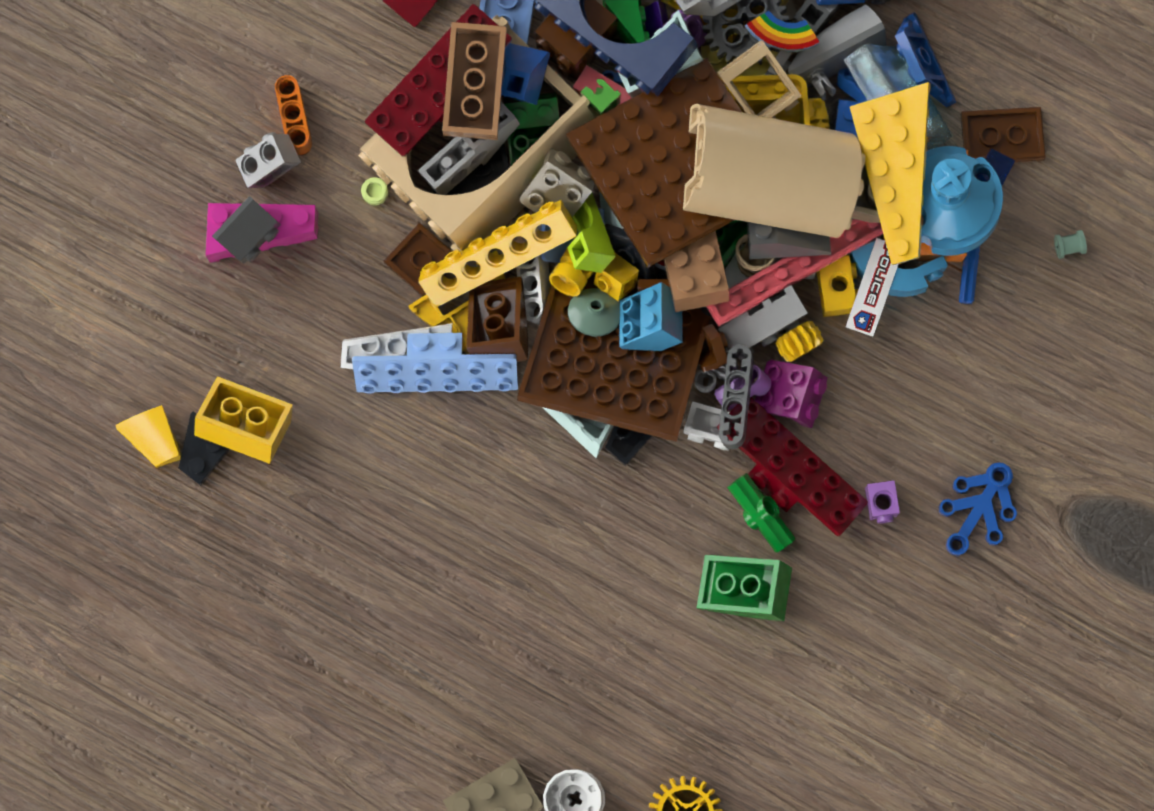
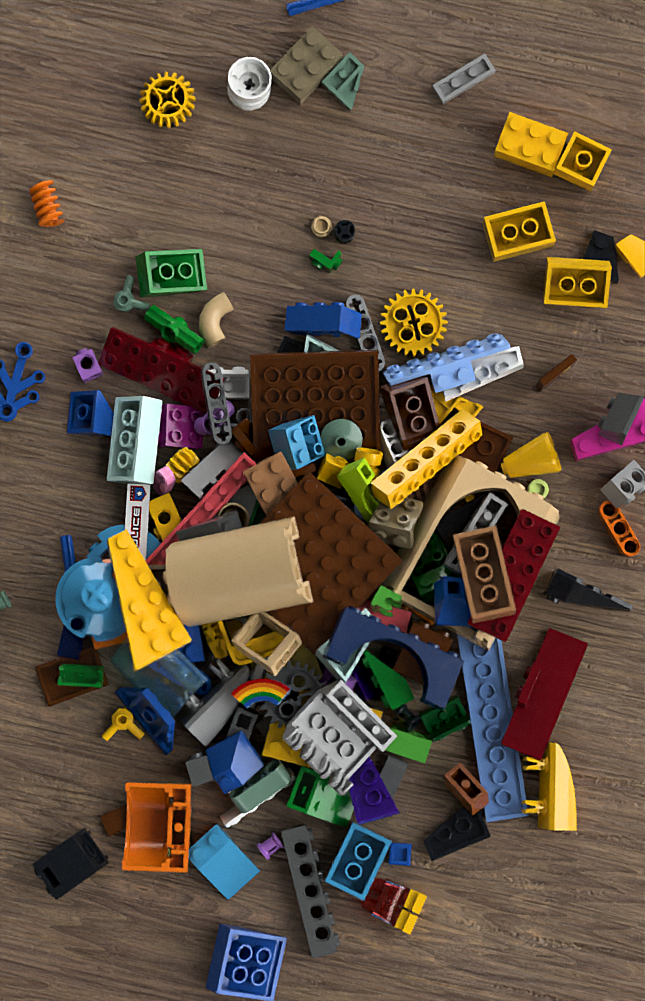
camera: 160 degrees right, 5 degrees up
(184, 571) = (582, 161): none -> yellow brick
(241, 614) = (530, 144): none -> yellow brick
(293, 506) = (519, 231): none -> yellow brick
(297, 727) = (463, 78): none -> light grey plate
(306, 317) = (556, 372): none -> reddish brown tile
(368, 224) = (533, 458): none -> yellow cone
(371, 57) = (569, 589): none -> black wedge
(436, 434) = (431, 318): none -> yellow gear
(449, 772) = (344, 80): none -> sand green wing
(508, 570) = (346, 228): none -> black wheel
(524, 440) = (369, 332): none -> light grey beam
(537, 591) = (321, 226): none -> tan plate
(552, 545) = (320, 261): none -> green bracket
(573, 466) = (322, 319): none -> blue wedge
(712, 513) = (210, 319): none -> tan cylinder
(812, 570) = (124, 299): none -> sand green piece
(827, 327) = (163, 481): none -> bright pink beam
(850, 385) = (134, 440): none -> light aqua brick
(879, 722) = (44, 204): none -> orange piece
(897, 437) = (89, 414): none -> blue slope
(956, 65) = (122, 720): none -> yellow piece
(992, 126) = (81, 675): none -> green hinge

